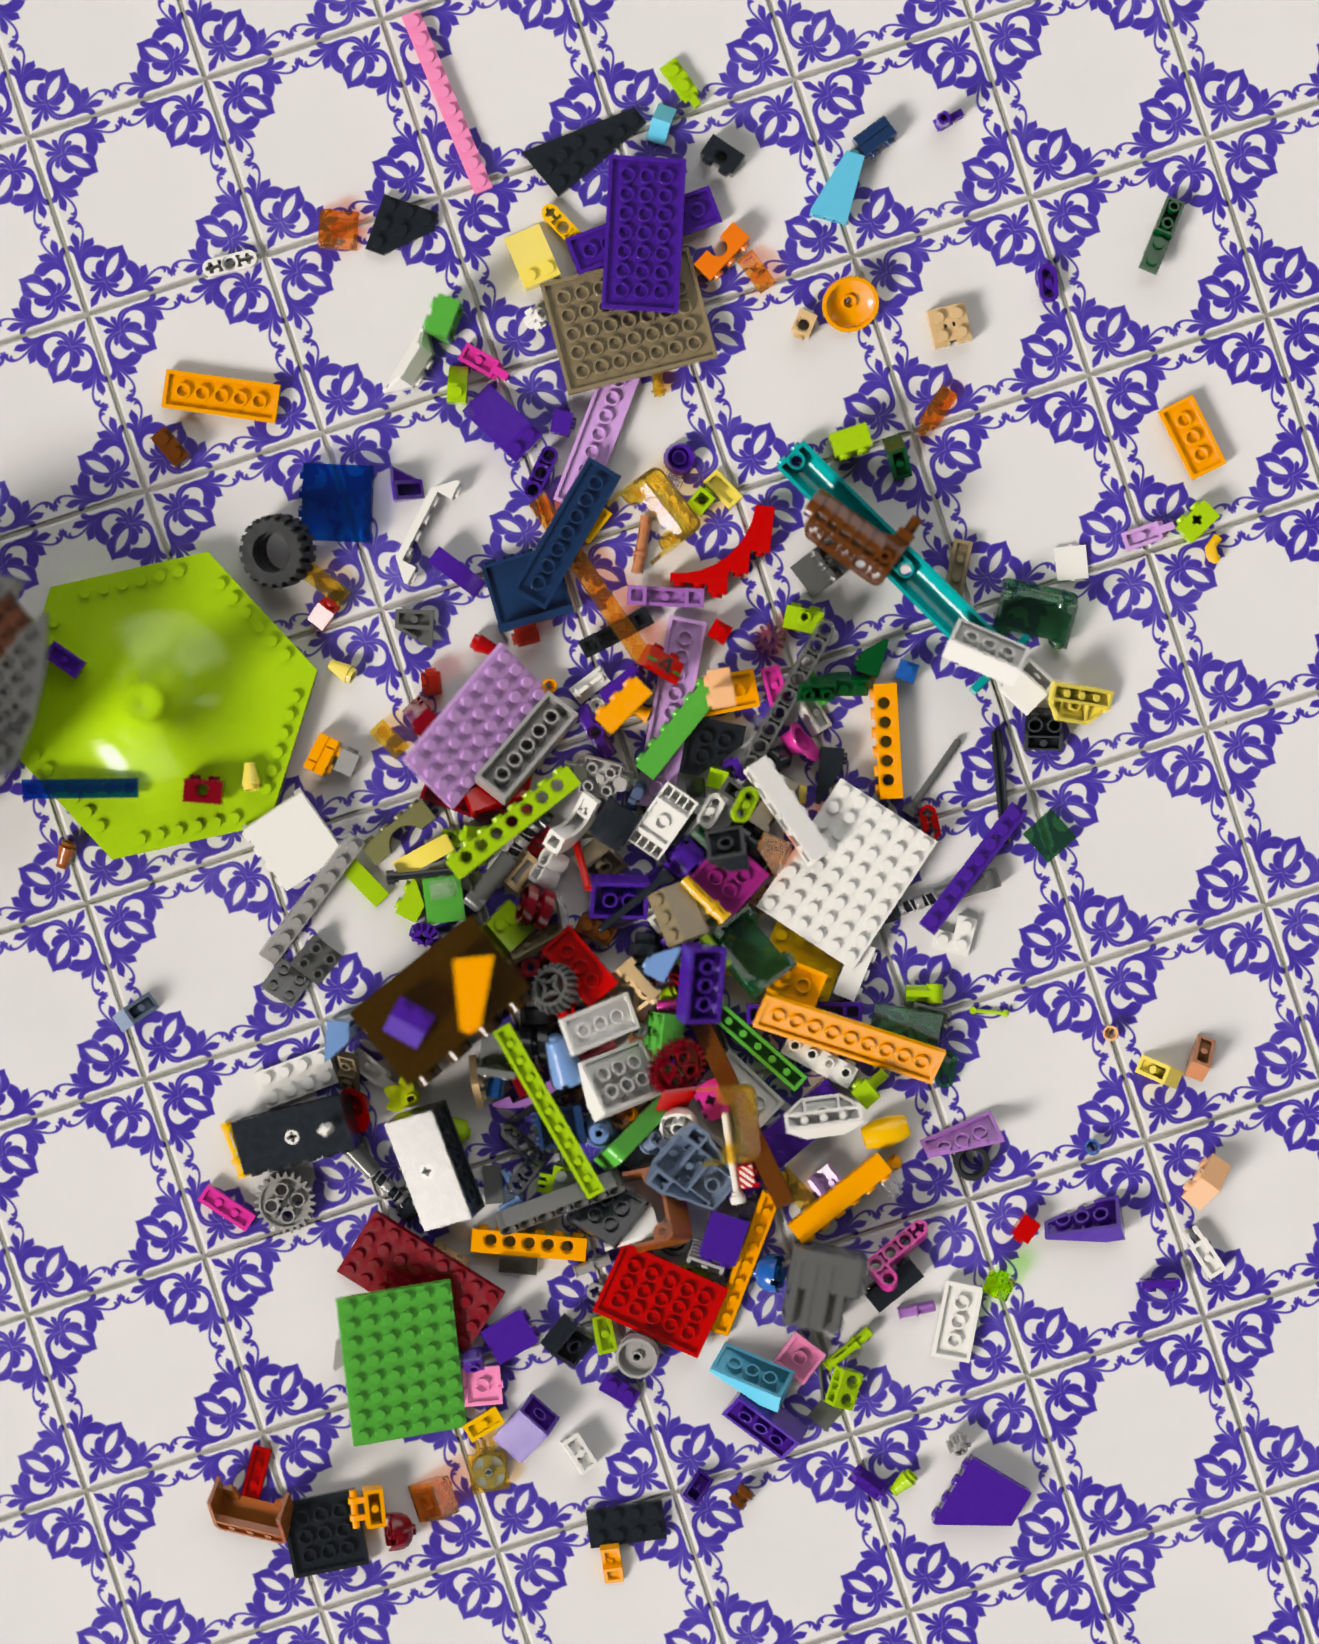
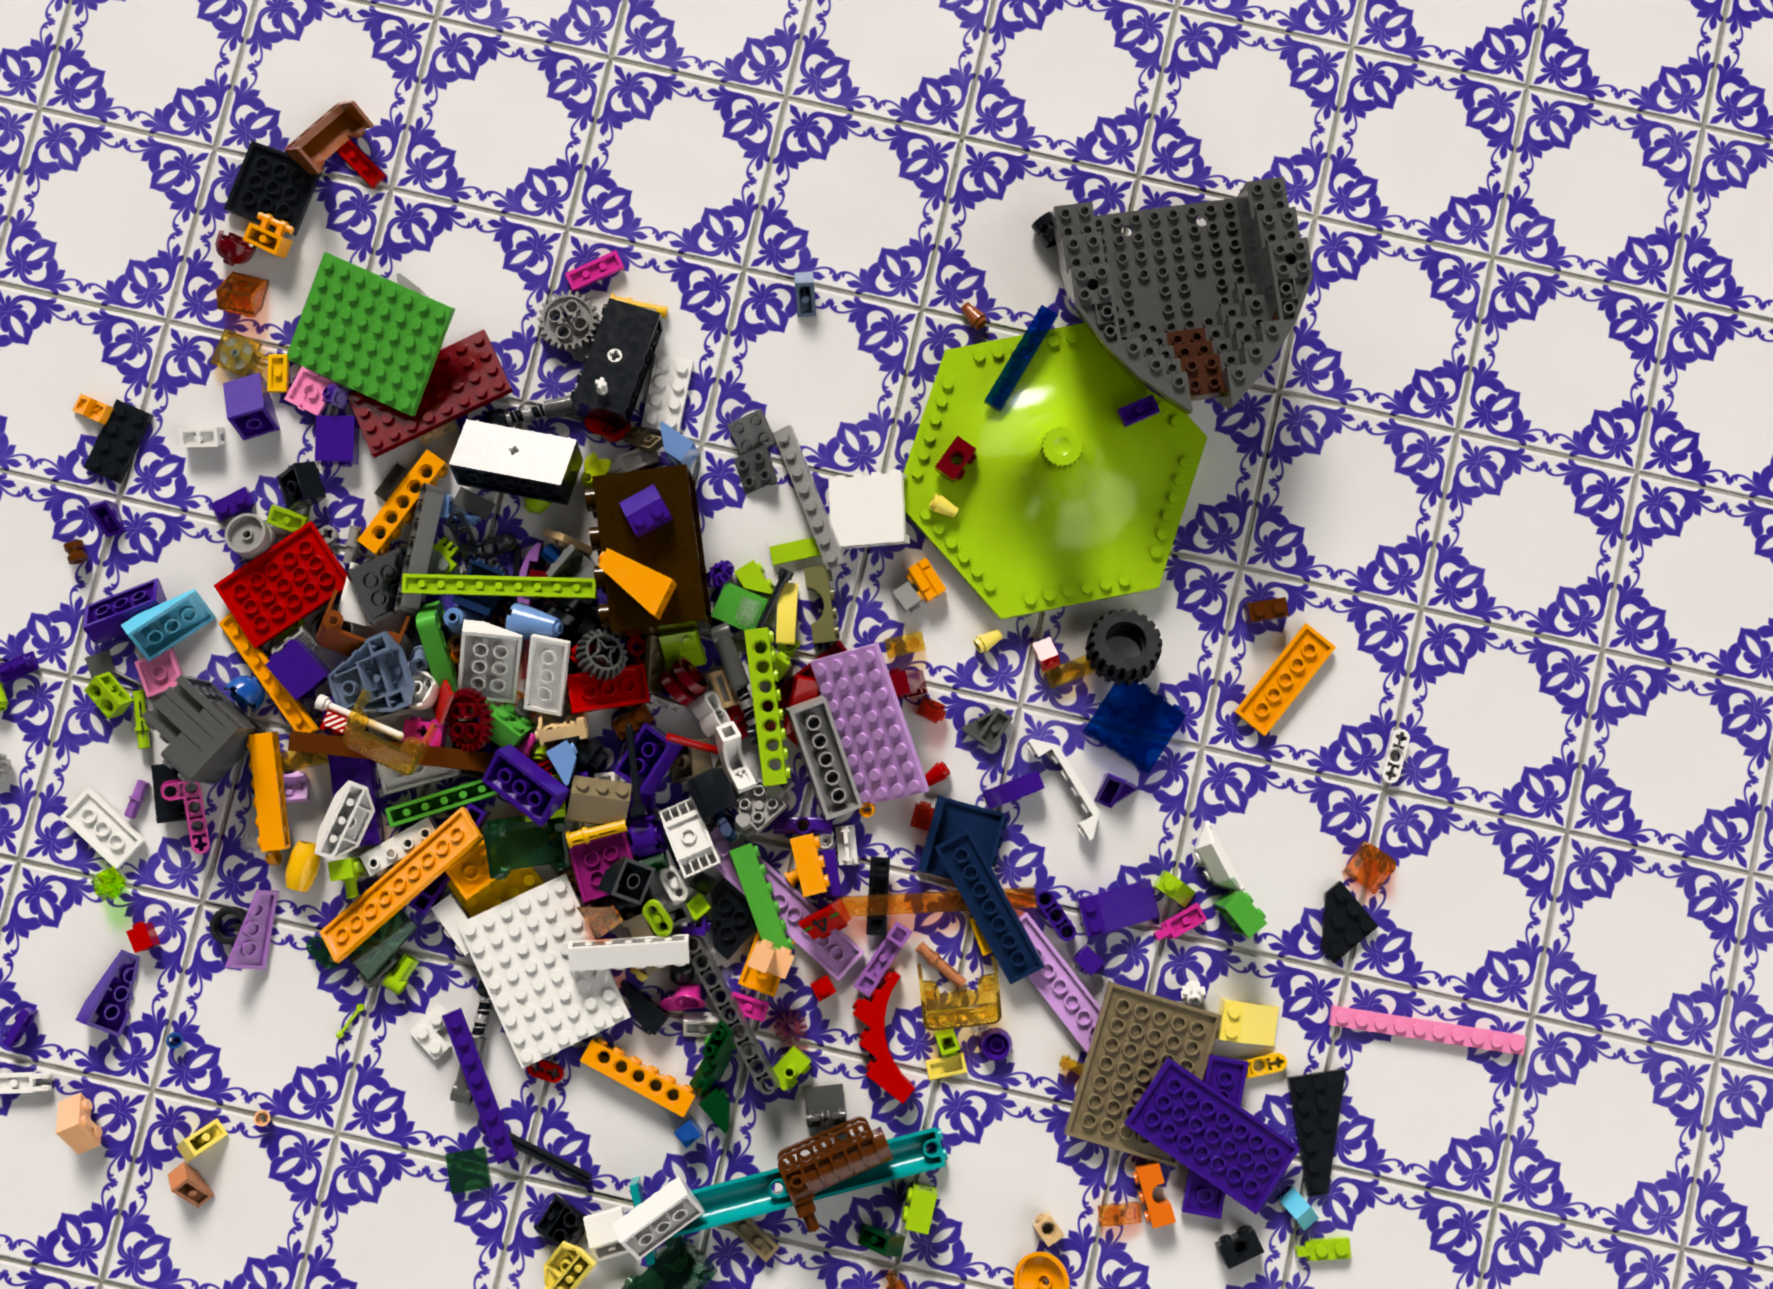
camera: 120 degrees right, 5 degrees down
(911, 808) = (567, 1062): dark grey piece -> none

